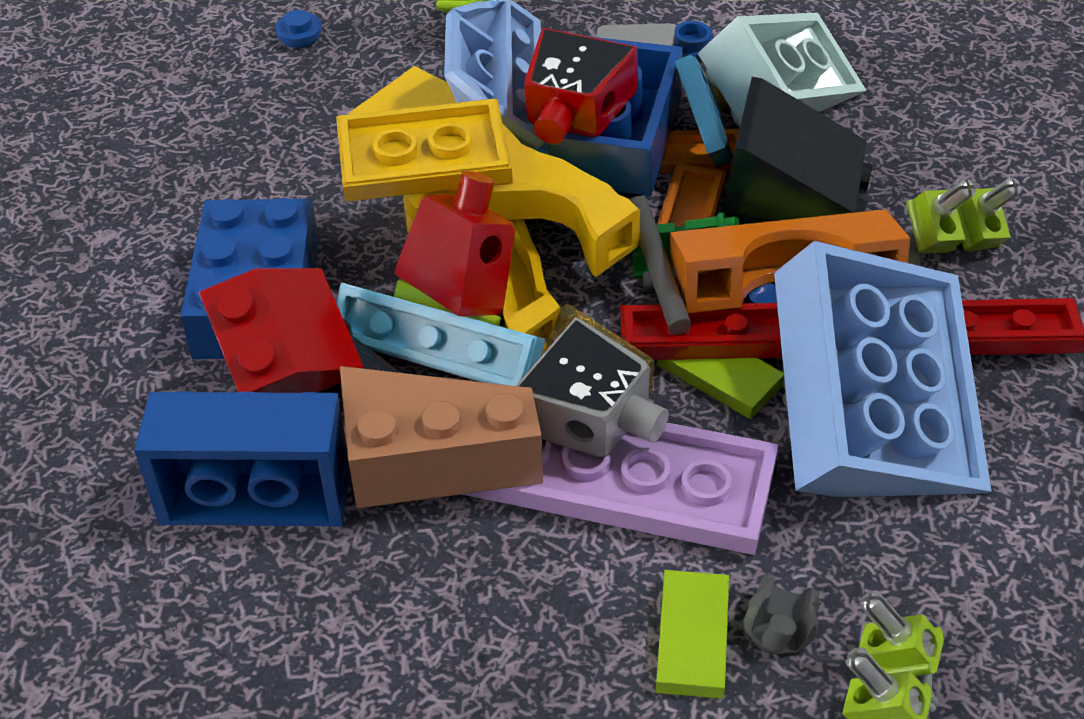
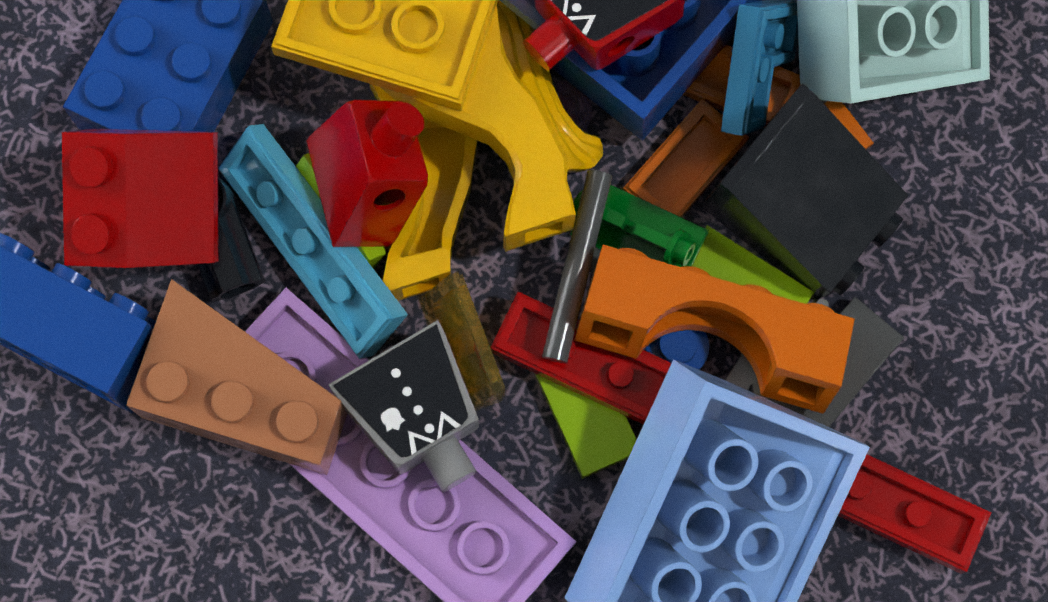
camera: 20 degrees right, 30 degrees up
(961, 216) = (965, 355): lime piece -> none

